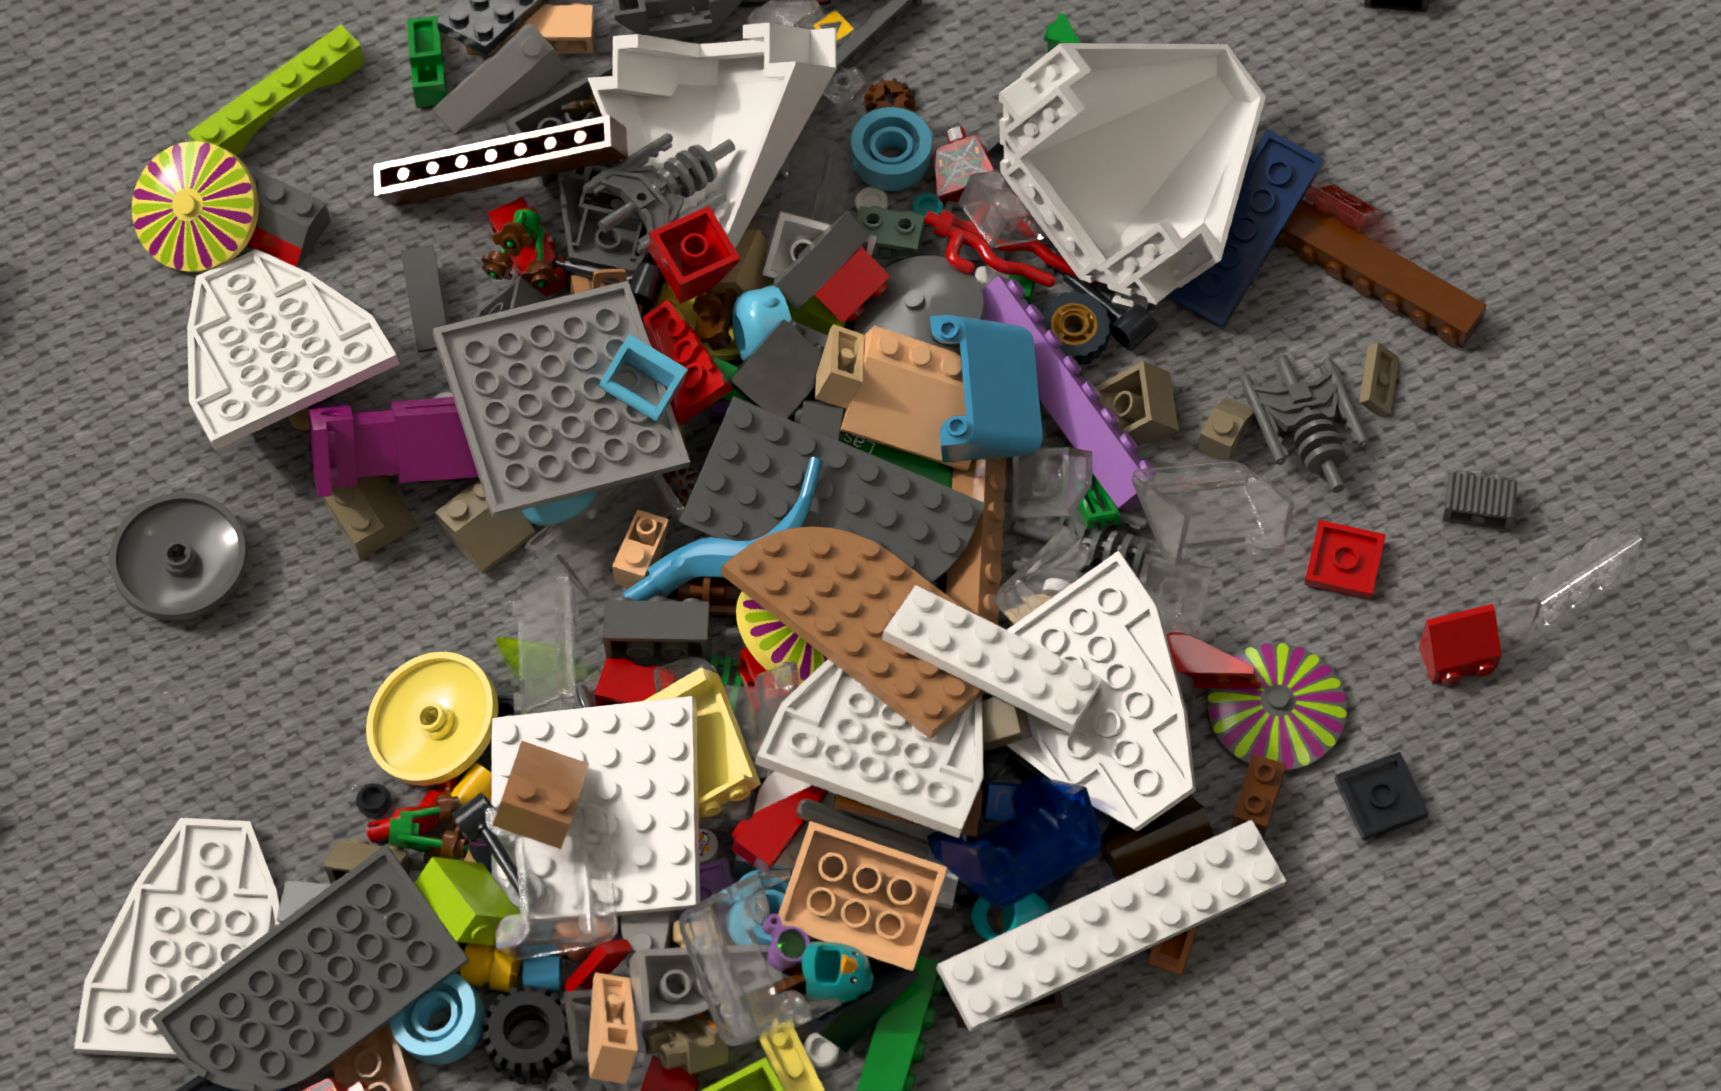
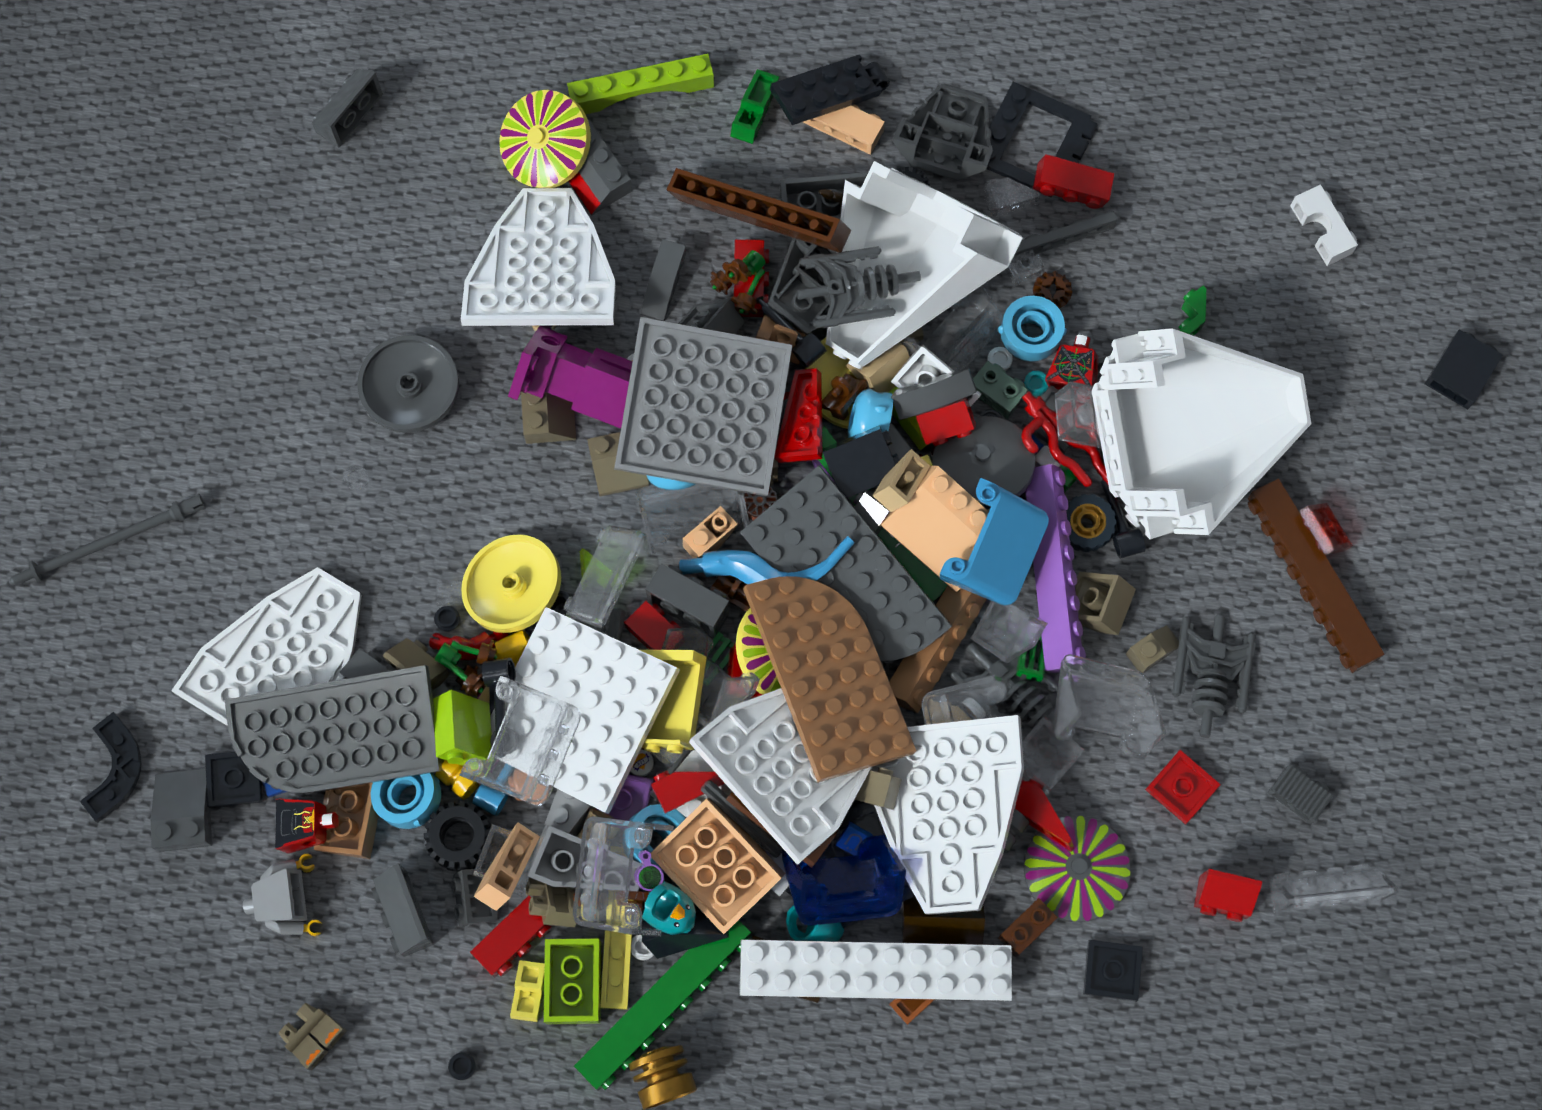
camera: 25 degrees right, 10 degrees up
(511, 76) = (798, 147): light grey wedge -> none
(541, 795) = (541, 685): medium nougat slope -> none
(601, 960) = (526, 814): red tile -> none
(651, 363) = (776, 415): medium azure tile -> none
(693, 253) = (847, 346): red slope -> none
(835, 20) = (1042, 218): tile -> none
(992, 659) = (891, 747): white plate -> none
(1269, 196) = (1277, 495): dark blue plate -> none
(1379, 379) = (1279, 668): dark tan plate -> none

